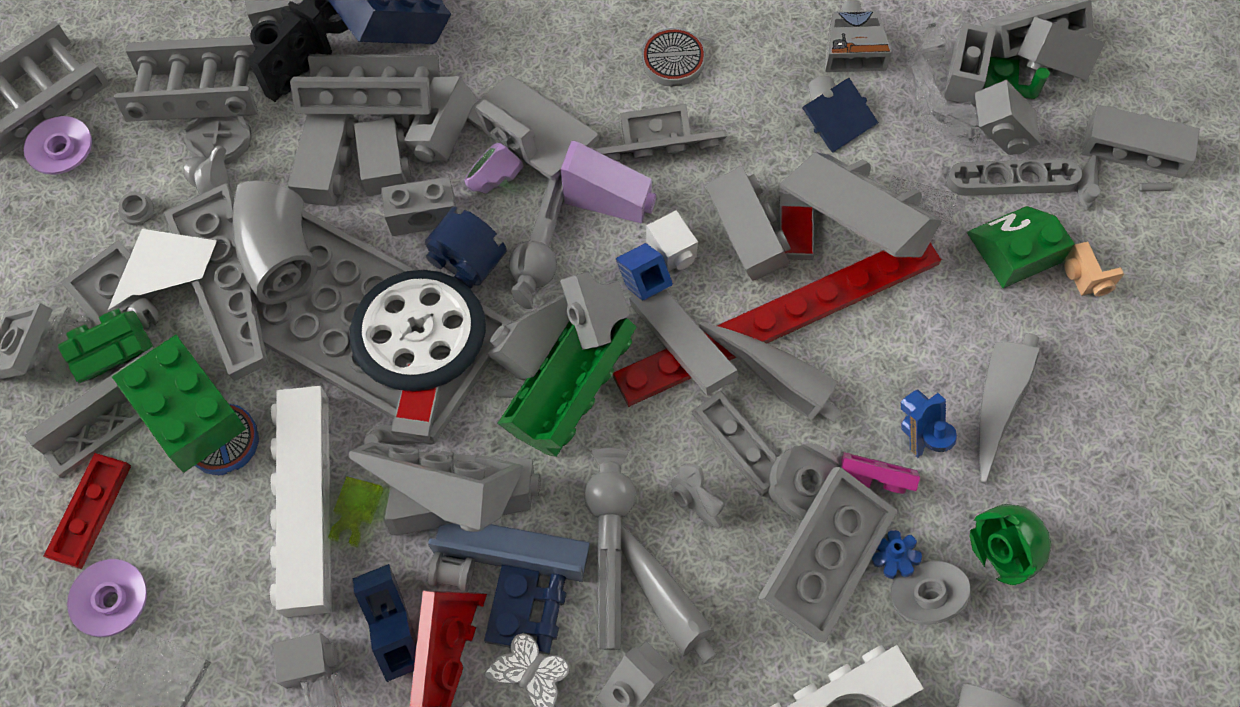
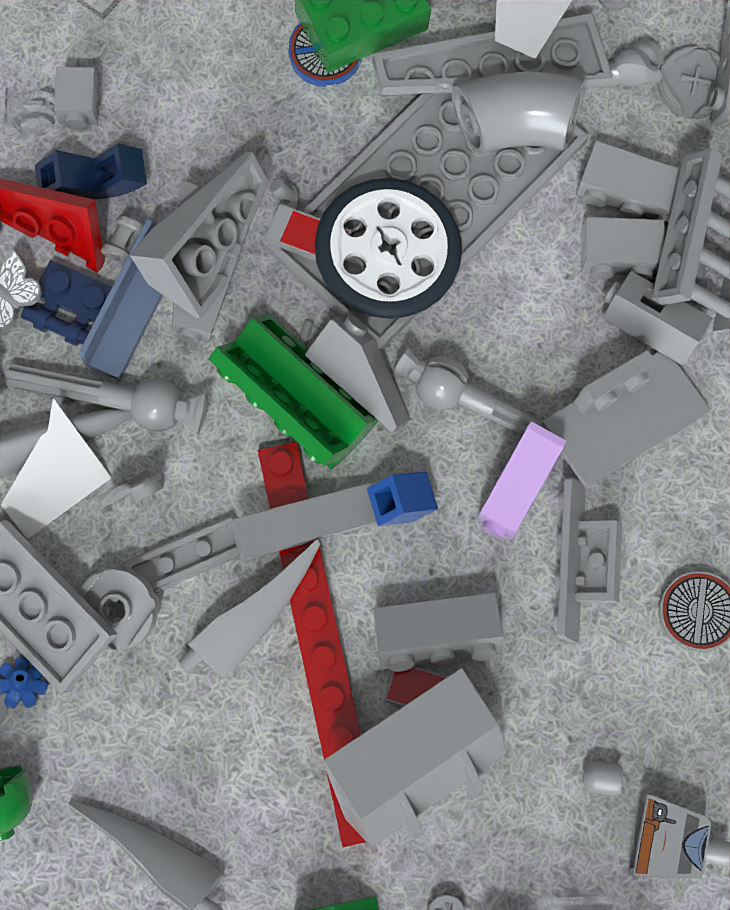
camera: 100 degrees right, 10 degrees up
(302, 503) = (235, 114): white brick -> none
(355, 505) = (210, 161): clear neon green plate -> none
(417, 205) = (544, 277): light grey brick -> none
(464, 247) = (473, 310): dark blue brick -> none
(493, 169) = (576, 362): lavender rock -> none
(593, 308) = (353, 424): light grey brick -> none
(673, 240) = (435, 542): white brick -> none
(701, 573) = (54, 476): none -> white sticker
(840, 116) = (564, 790): dark blue piece -> none
(894, 477) = (115, 676): dark pink hinge -> none
(927, 423) = (137, 752): blue hips -> none

